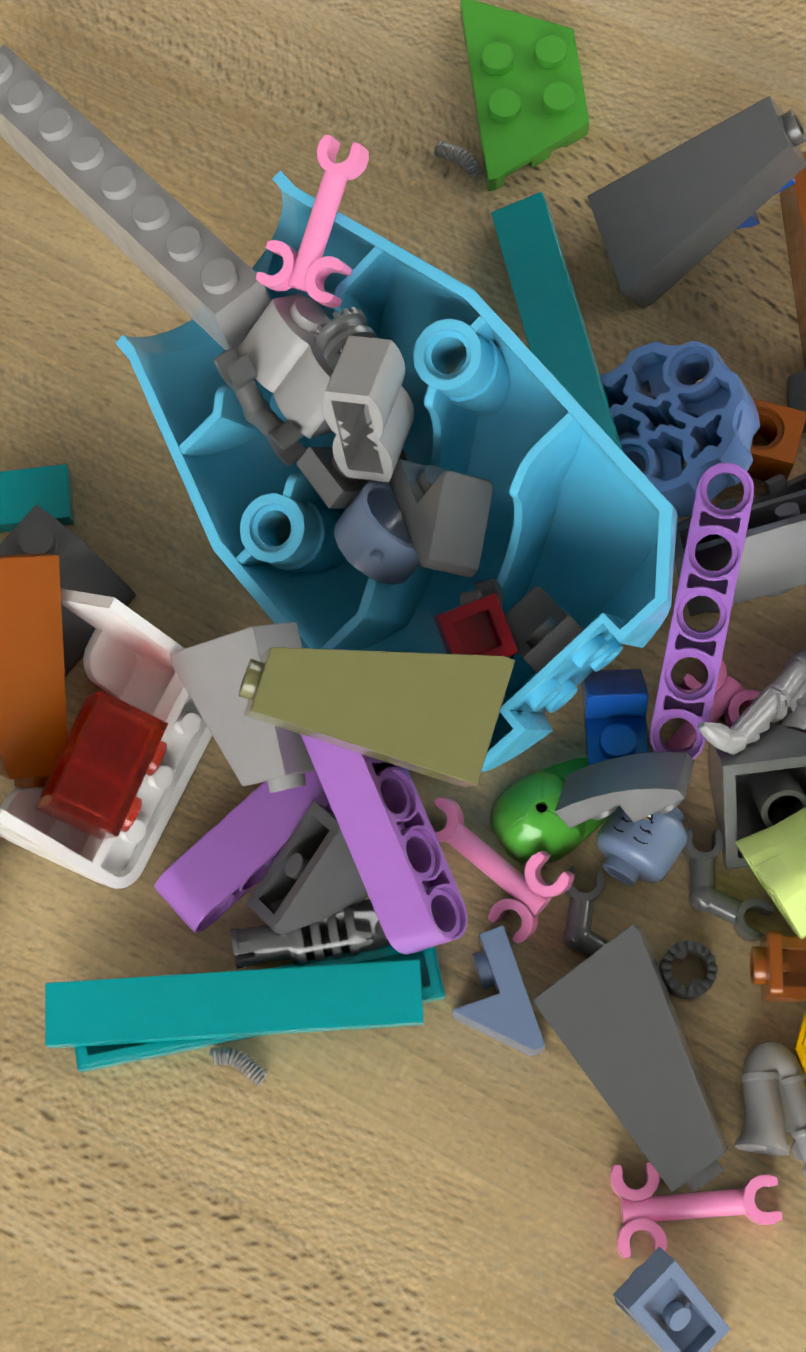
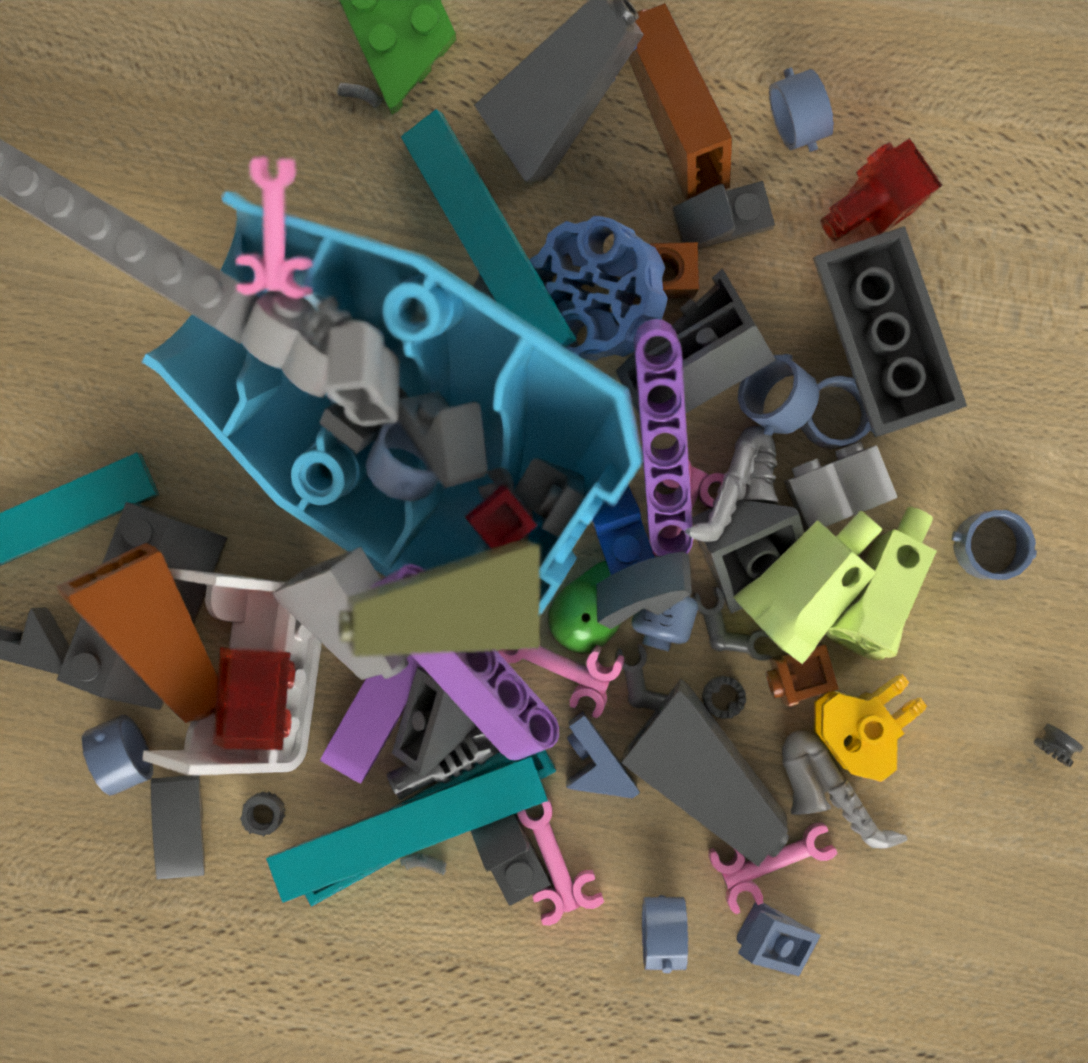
camera: 20 degrees left, 15 degrees up
(47, 920) = (270, 800): none -> dark grey axle
(240, 377) = (274, 383): dark grey arm -> none
(351, 1088) = (510, 858): none -> dark grey slope
(409, 1162) = (565, 894): none -> bright pink bar
(522, 1247) = (664, 933): none -> sand blue piece

